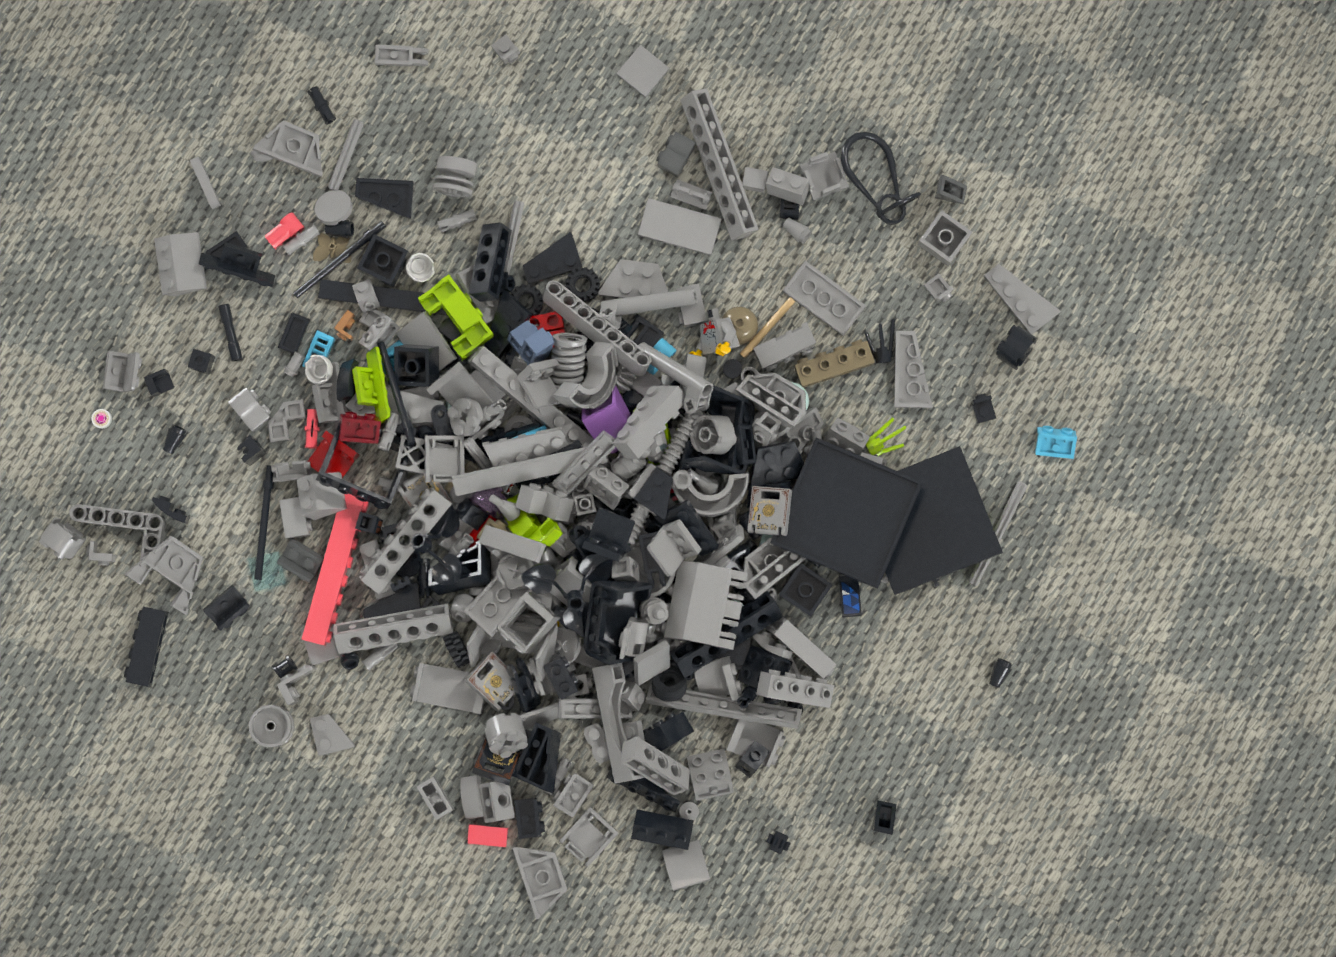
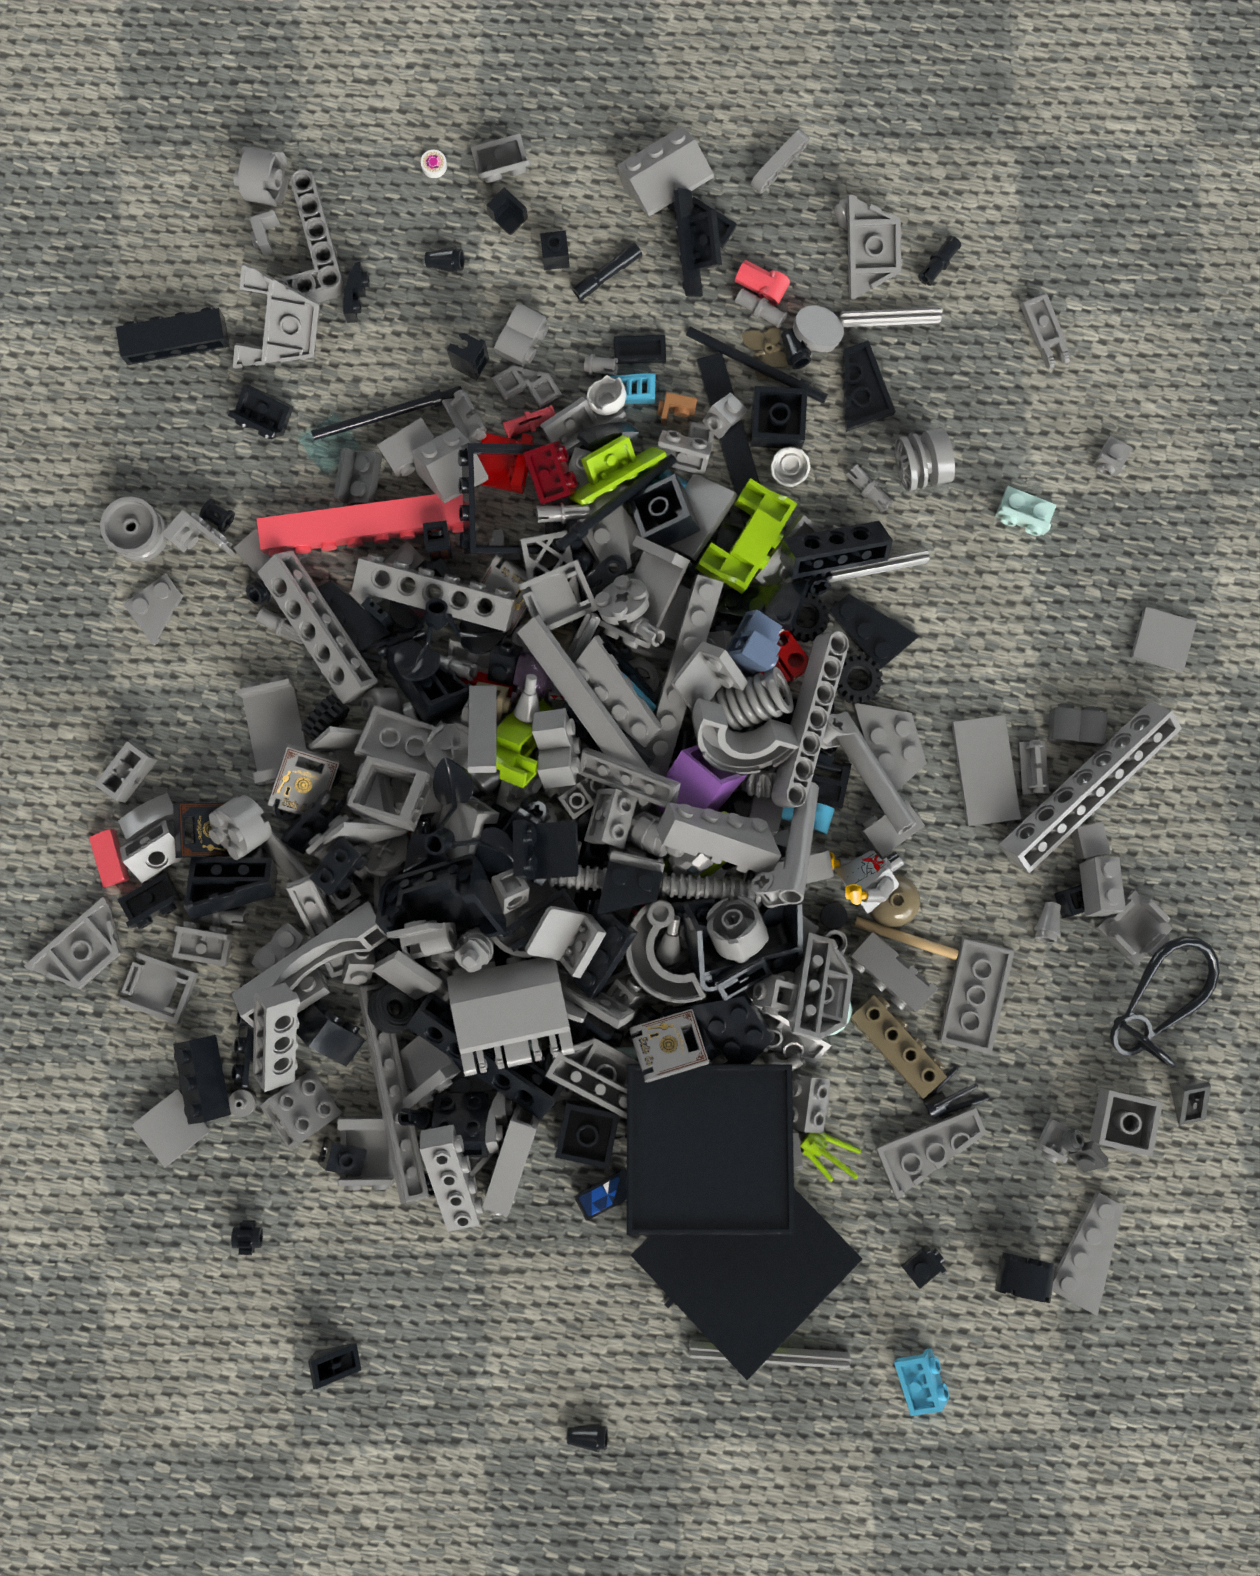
camera: 60 degrees right, 0 degrees up
(517, 123) = (1025, 511): none -> light aqua bracket
(955, 273) = (1085, 1155): none -> dark grey plate

